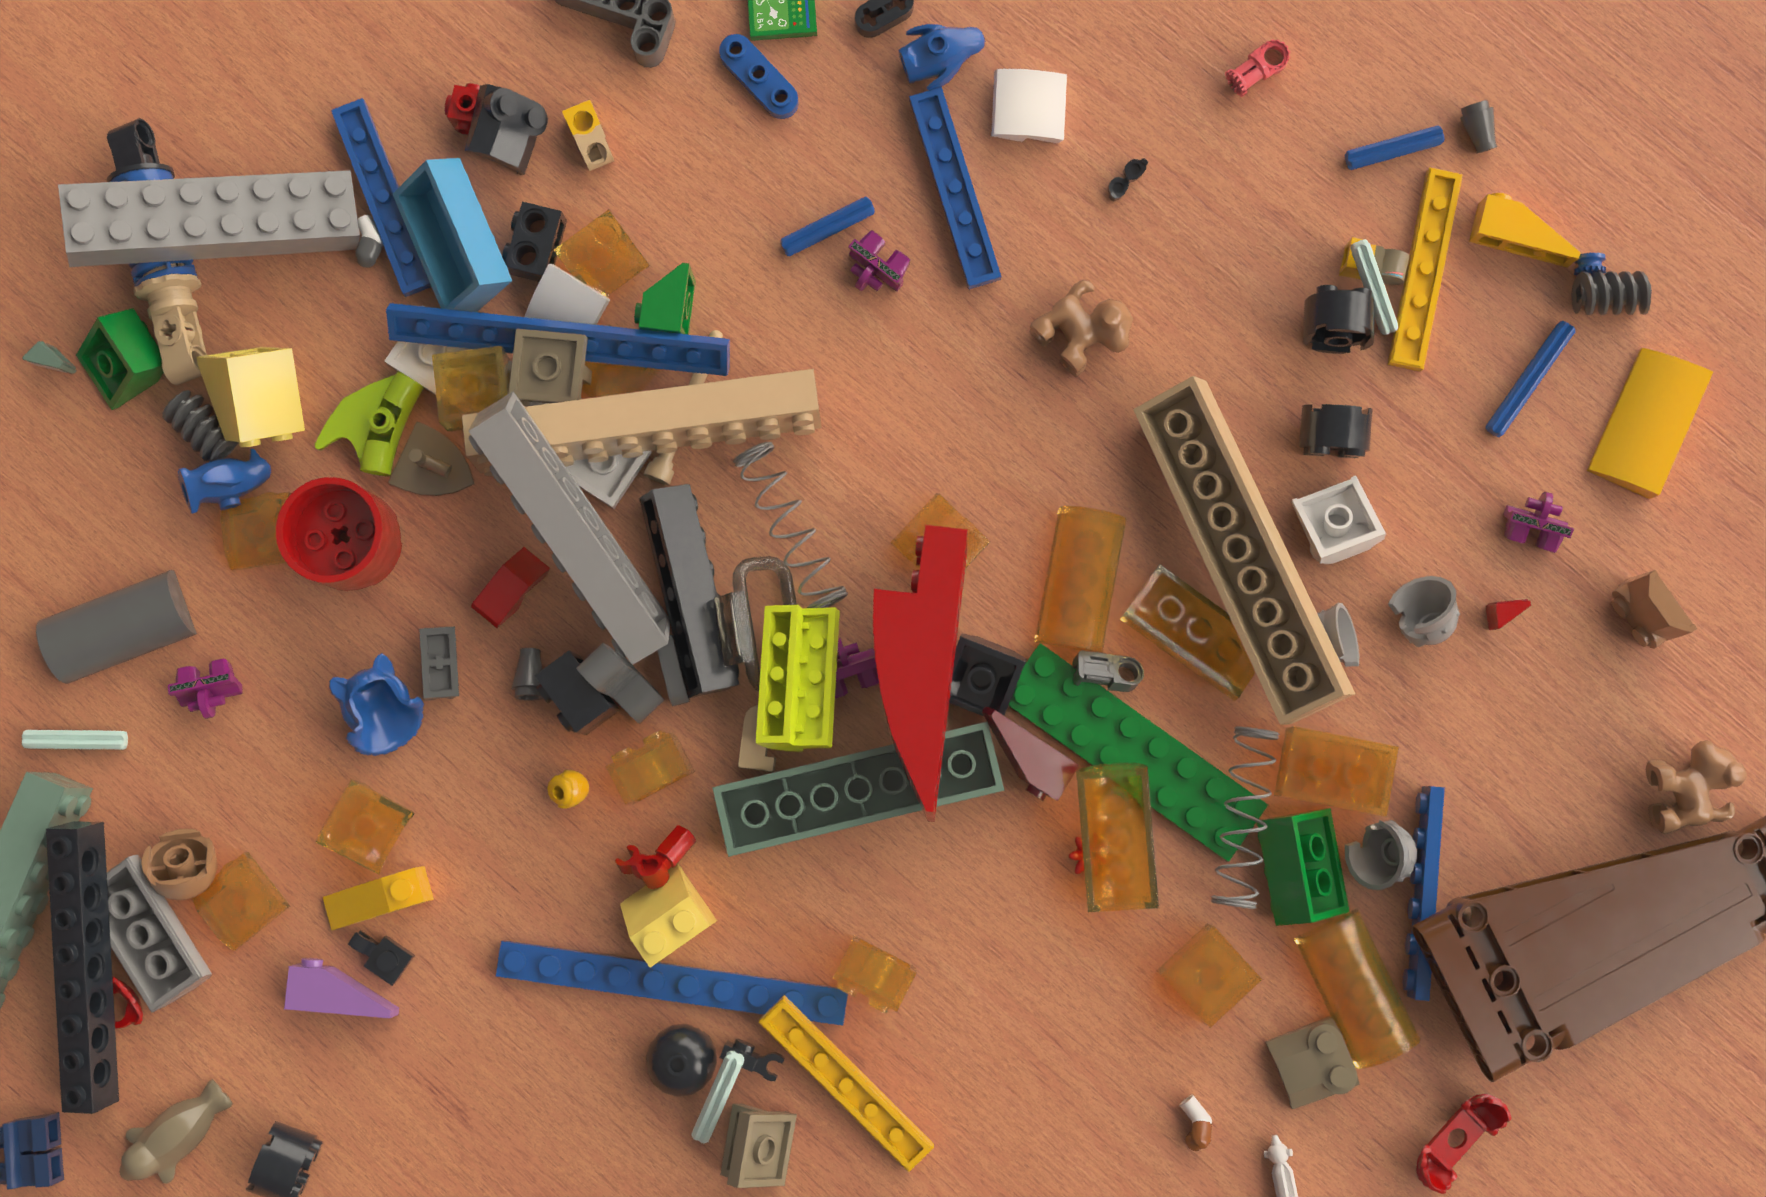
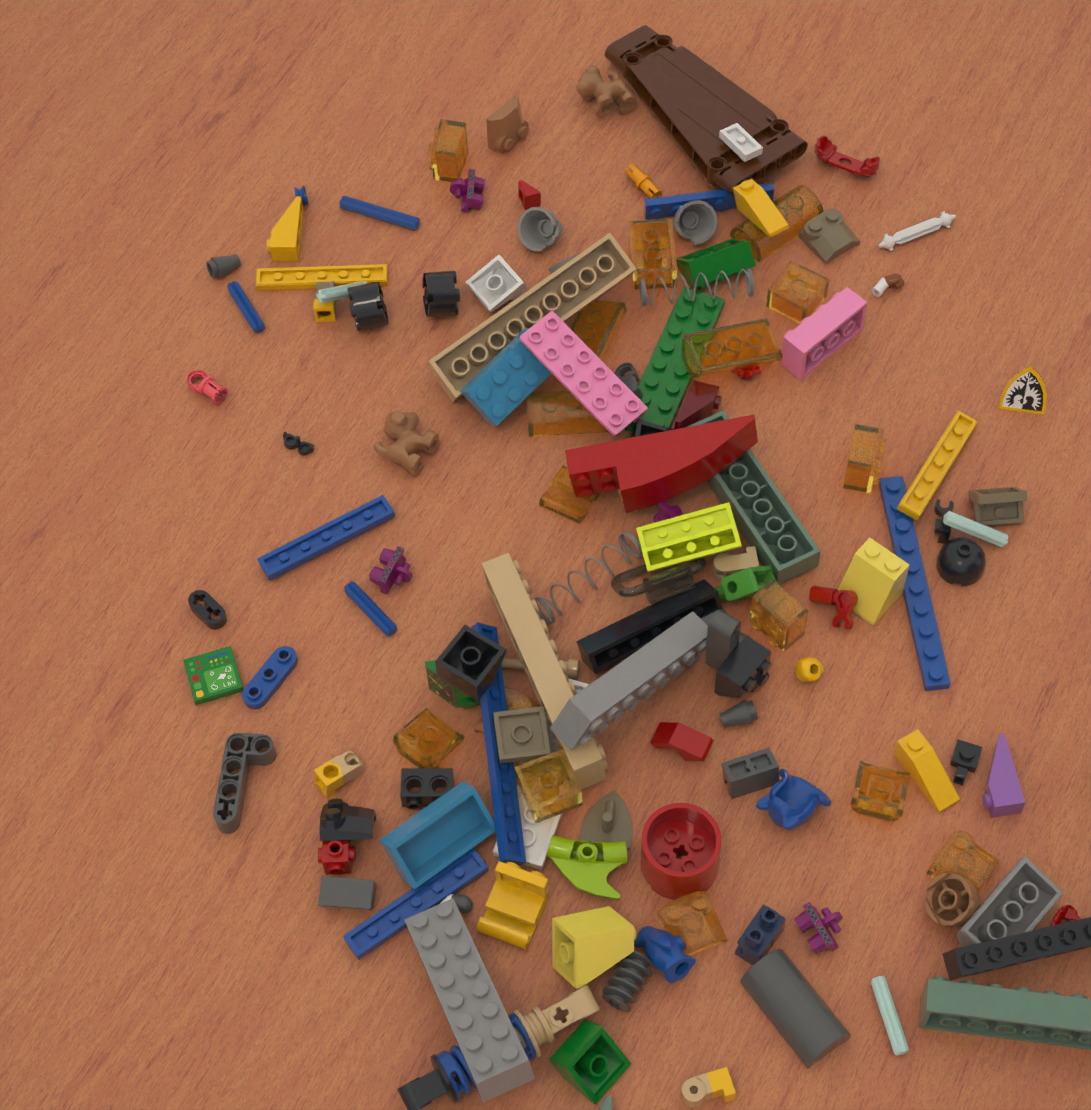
camera: 105 degrees left, 25 degrees down
(49, 491) = (708, 1086): none -> leg
(214, 609) = (760, 935): none -> dark blue hips
(340, 313) = (514, 905): none -> yellow piece
(418, 115) = (347, 893): none -> dark grey hinge
(565, 299) = (468, 753): white slope -> none
(652, 314) = (470, 662): none -> black slope
(710, 741) = (745, 583): none -> bright green torso
(938, 52) = (234, 566): blue animal -> none
(1029, 105) = (258, 508): white slope -> none
(1103, 591) = (583, 373): none -> bright pink bracket
(1114, 988) = (823, 333): none -> bright pink brick
(1142, 493) = (505, 381): none -> dark azure piece
(1367, 959) = (759, 208): none -> yellow slope
(1492, 800) = (643, 181): none -> light orange pin
(1503, 966) = (740, 142): none -> white plate
(1611, 290) = (317, 181): dark grey piece -> none
(1619, 505) = (448, 150): none -> clear yellow brick
(1649, 422) = (390, 151): yellow slope -> none

